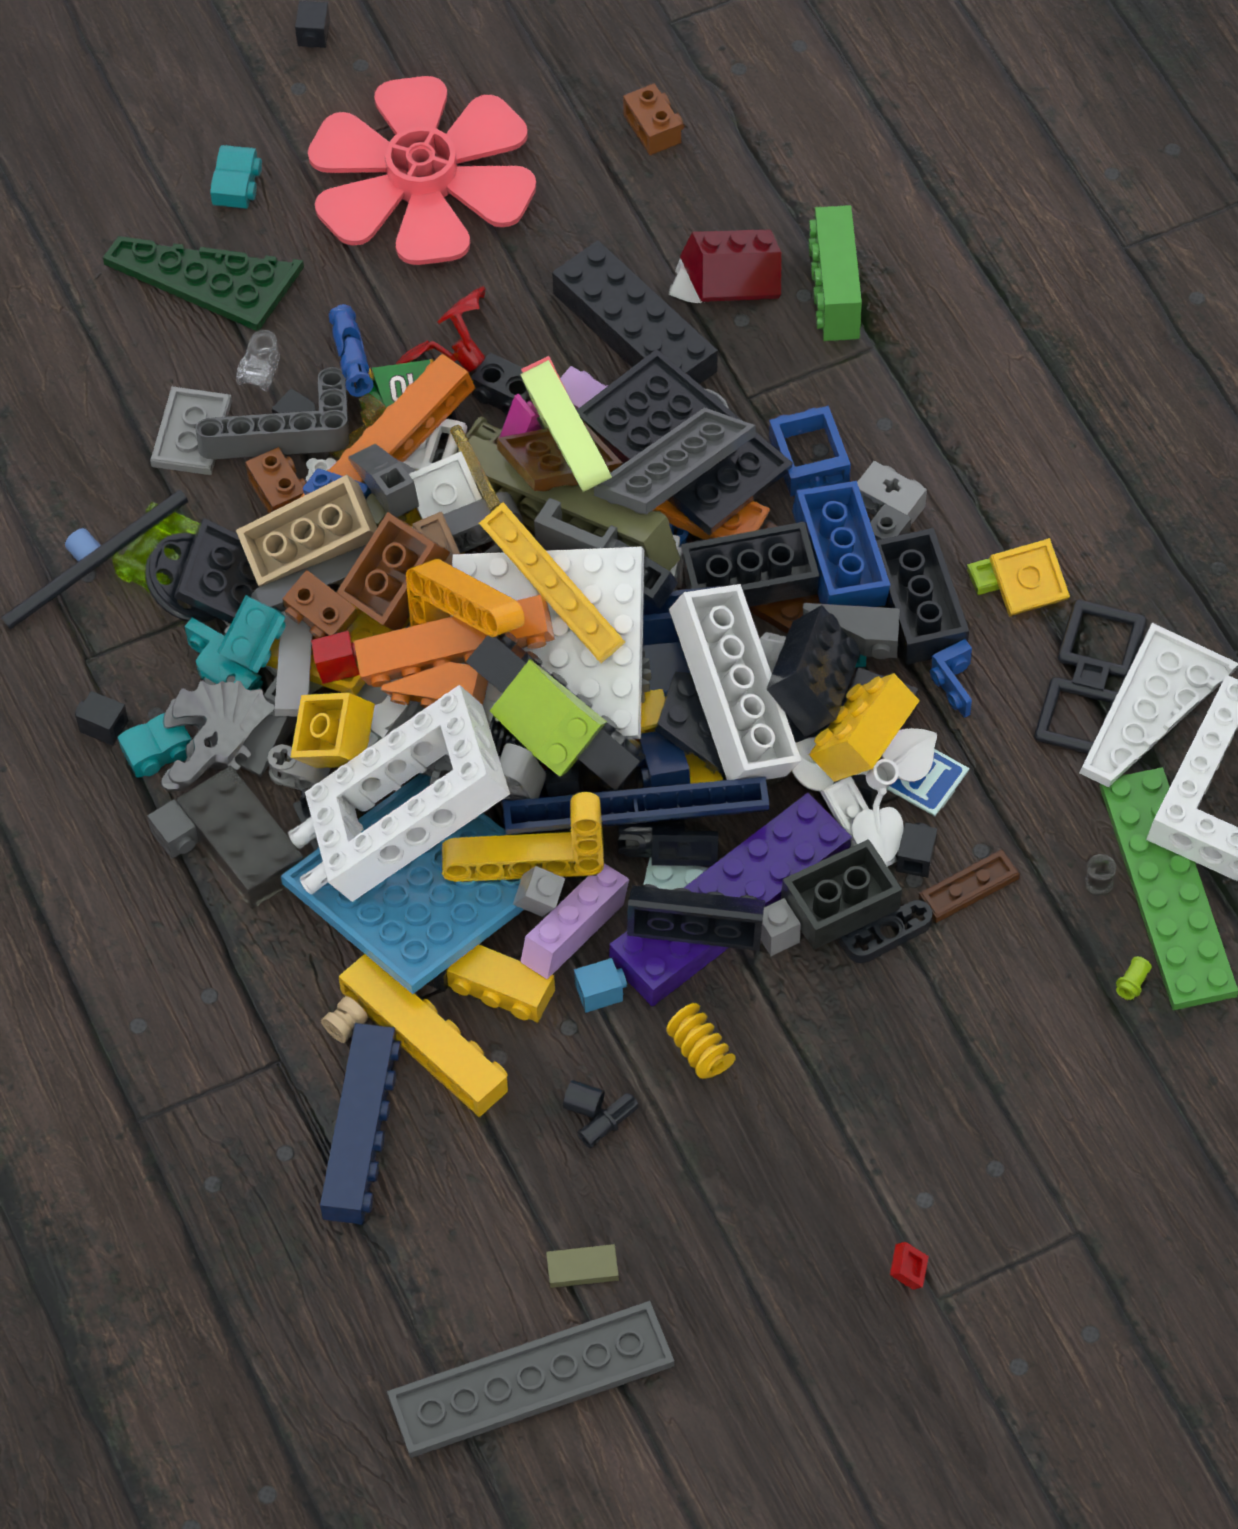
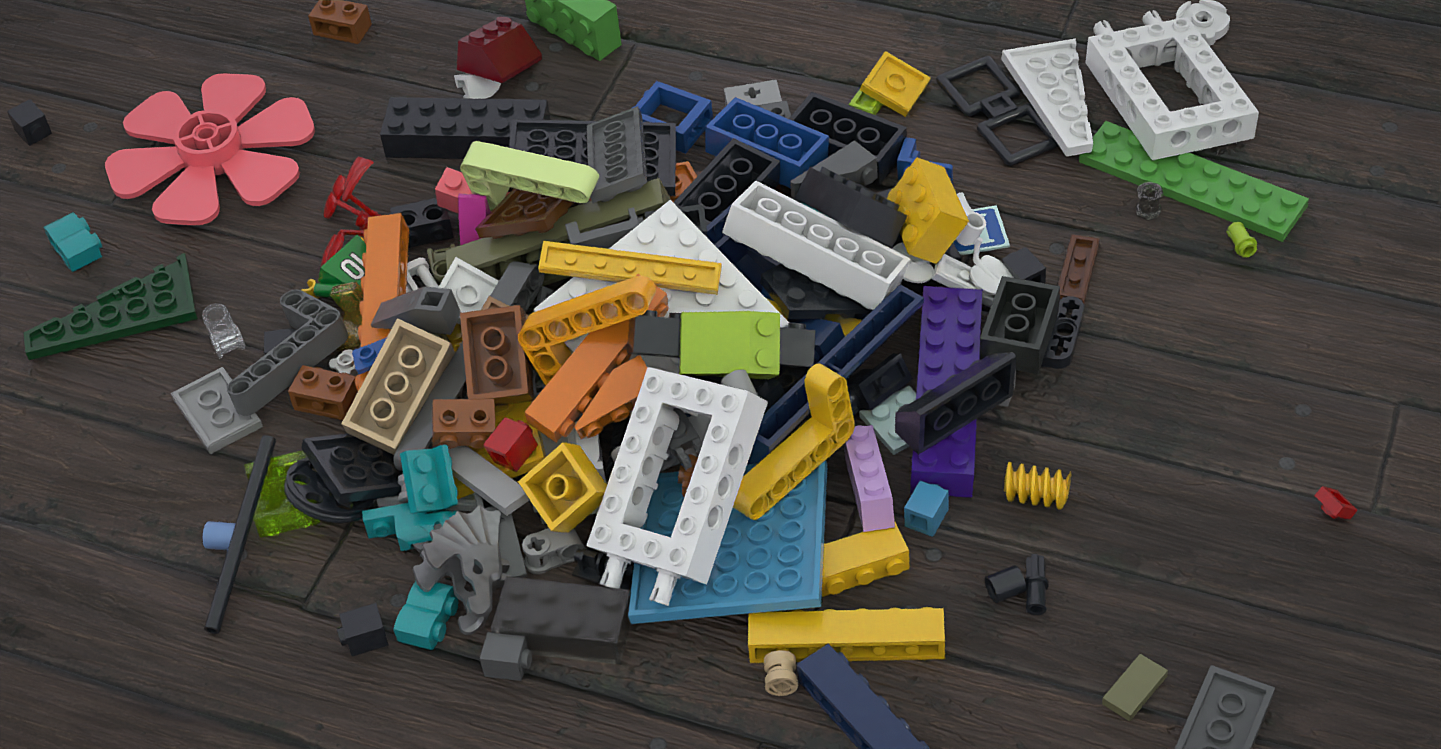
camera: 40 degrees left, 10 degrees down
(351, 349) = (288, 274): blue piece -> none
(475, 467) = (479, 262): clear yellow bar -> none
(539, 891) = (832, 470): light grey brick -> none

